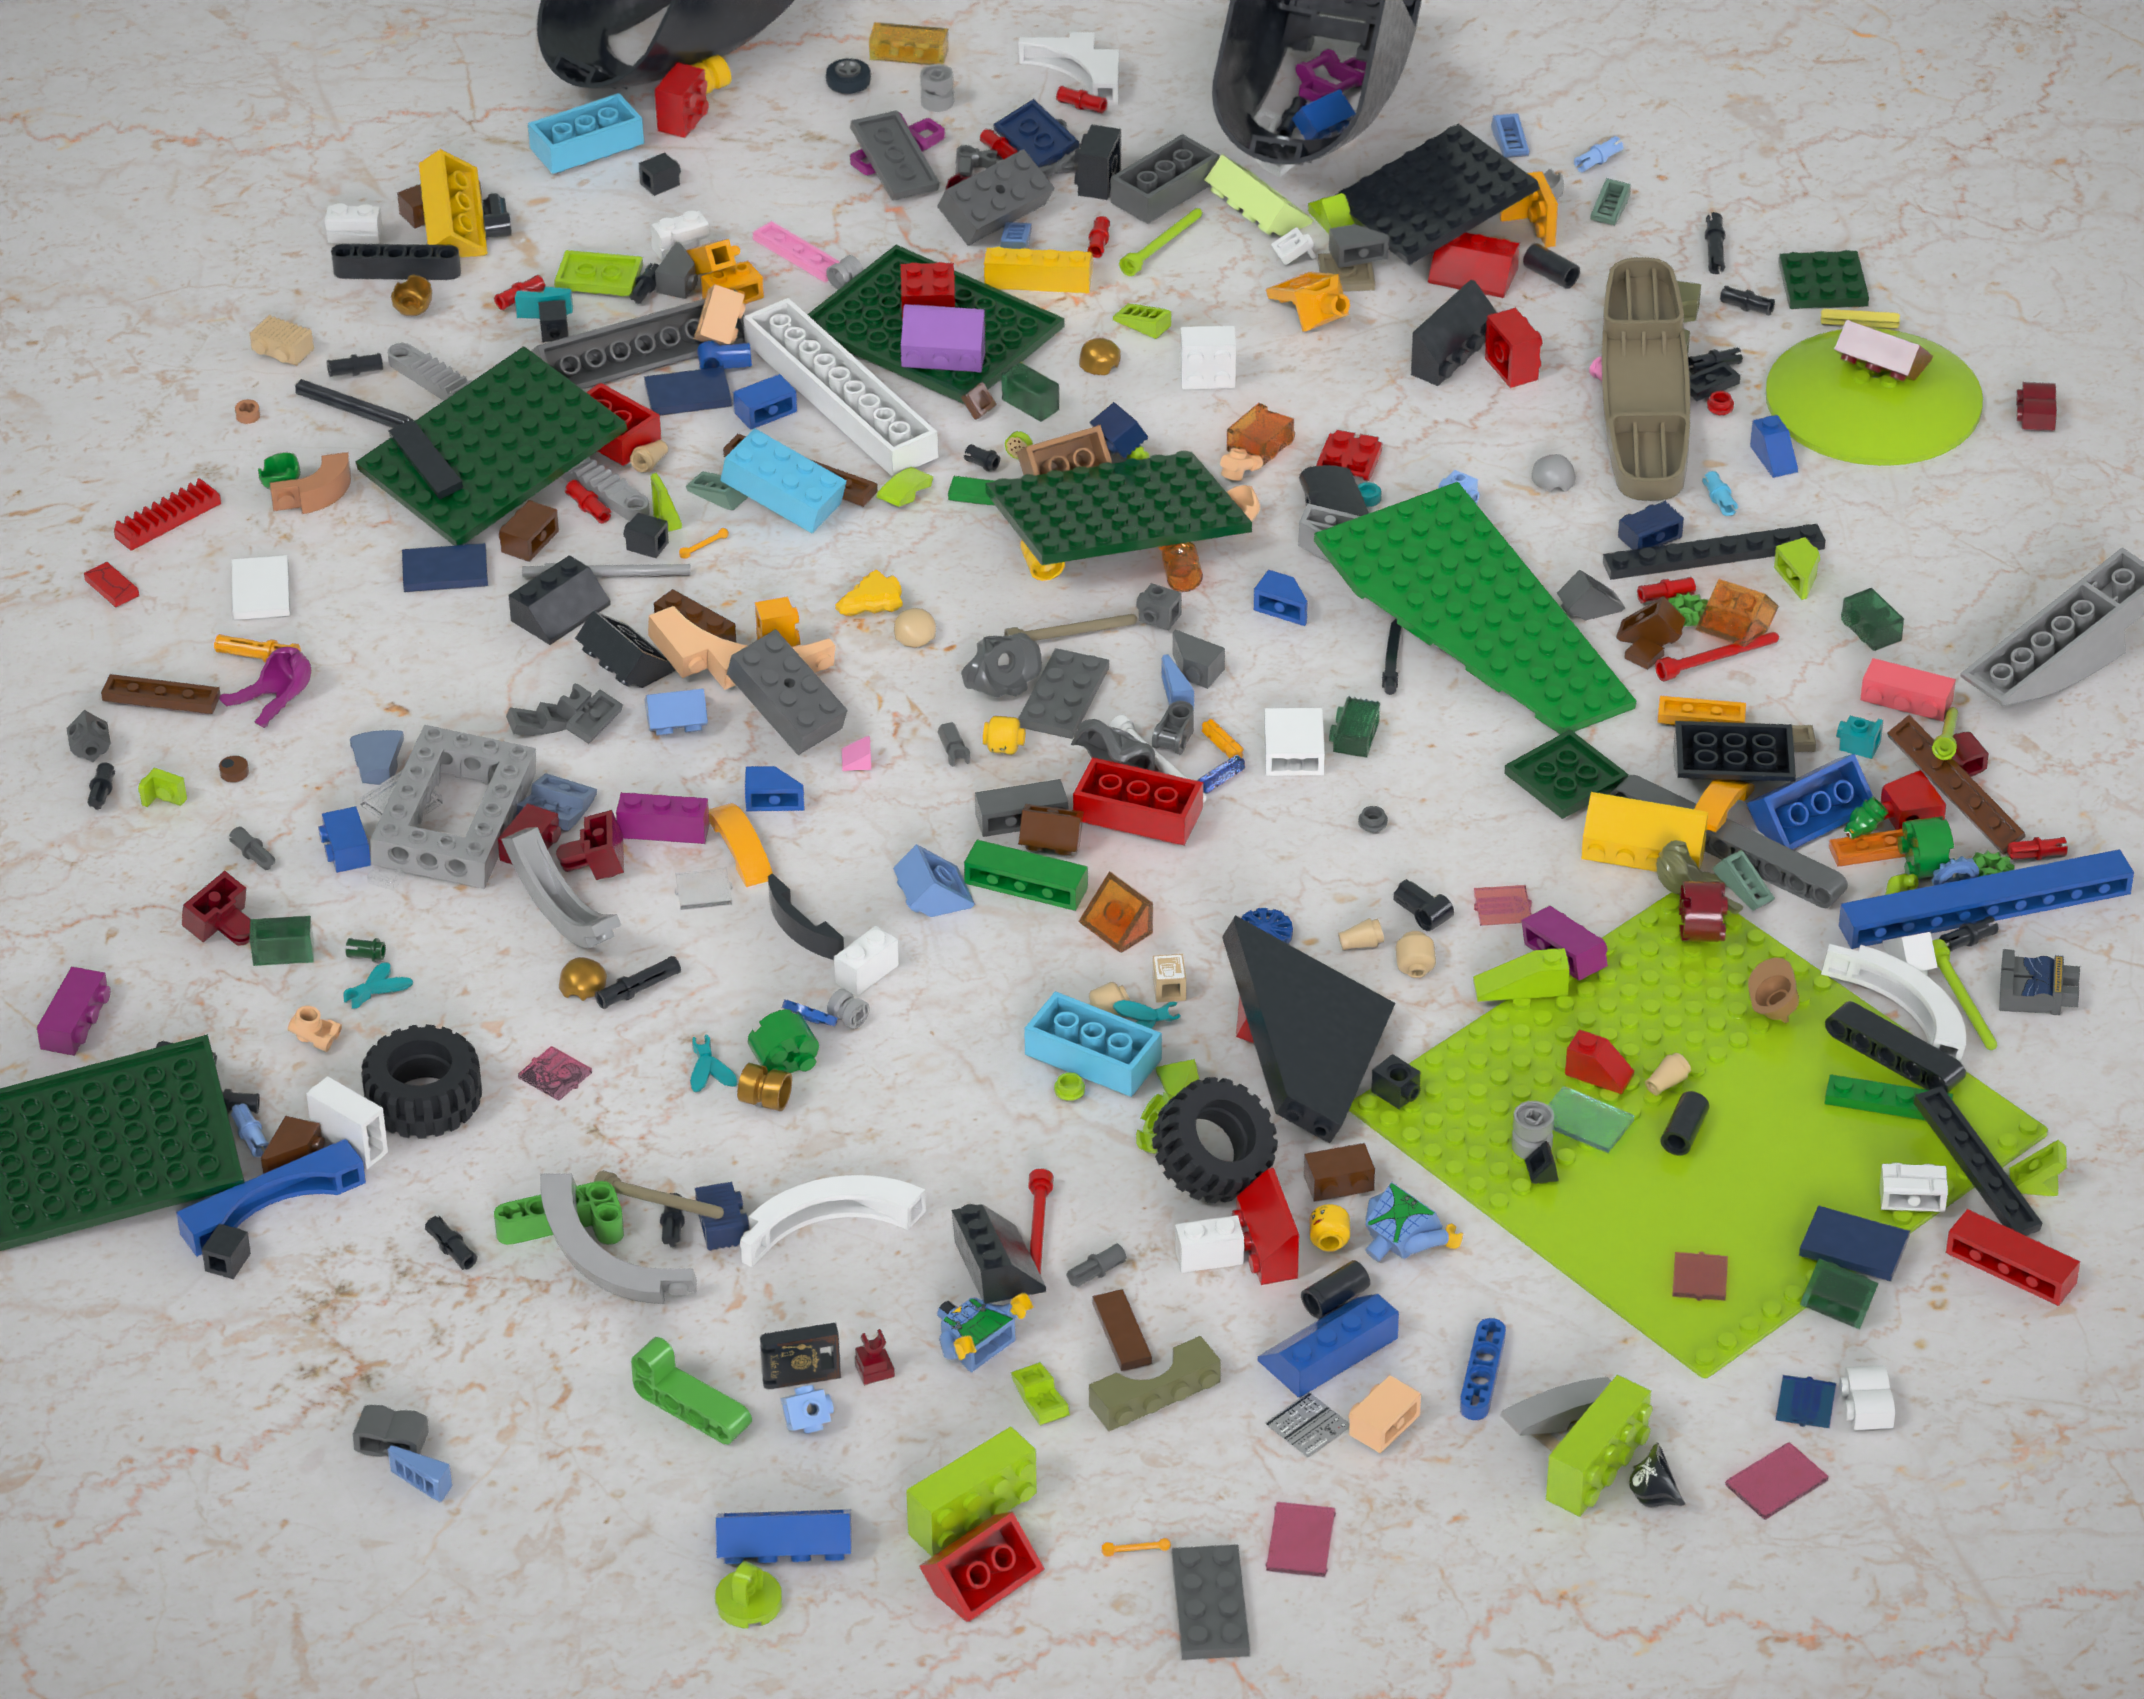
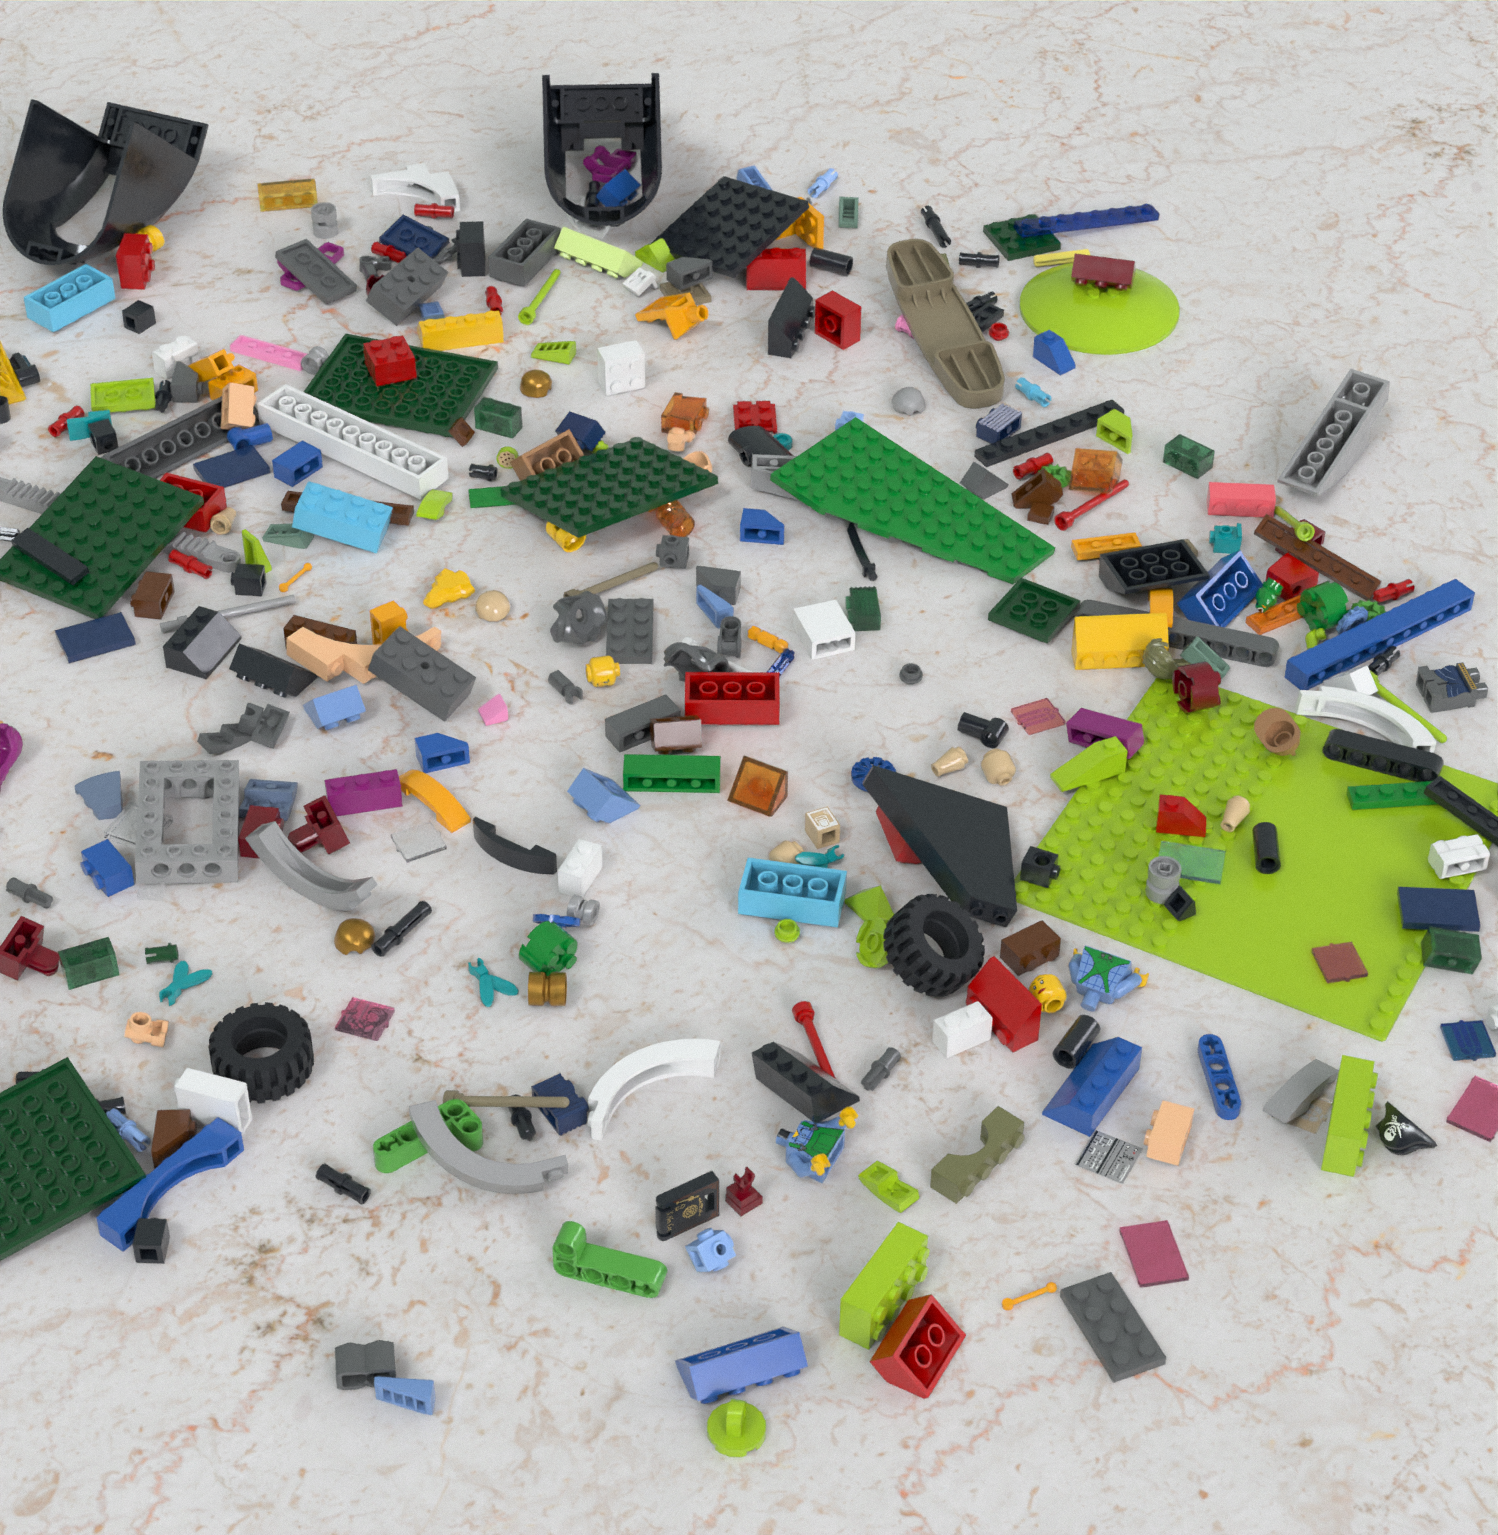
camera: 20 degrees left, 0 degrees up
(848, 75) = (251, 224): black wheel -> none
(943, 338) = (419, 390): medium lavender slope -> none
(1122, 1330) = (926, 1117): reddish brown tile -> none
(1918, 273) = (1086, 220): none -> clear blue plate
(2037, 405) = (1216, 291): dark red brick -> none

